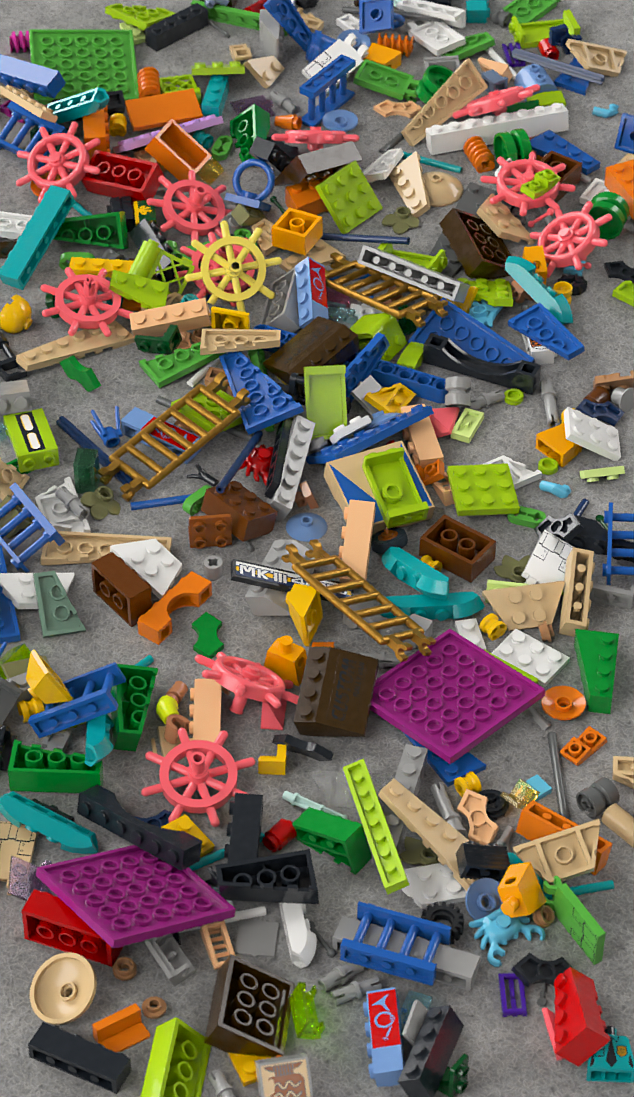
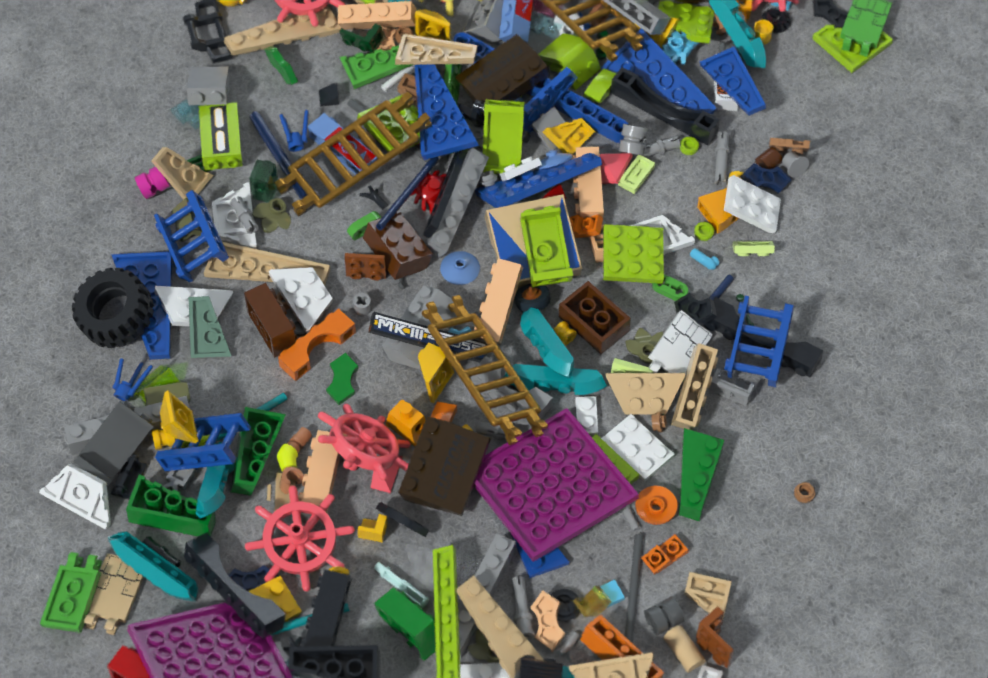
camera: 10 degrees right, 15 degrees up
(24, 879) = (117, 623): hinge -> none
(136, 395) = (329, 95): none -> black slope
(158, 502) = (328, 221): blue bar -> none
(279, 835) = (362, 610): red brick -> none
(306, 496) = (465, 236): nougat tile -> none
(468, 782) = (546, 582): yellow wheel -> none
(492, 626) = (609, 409): yellow wheel -> none

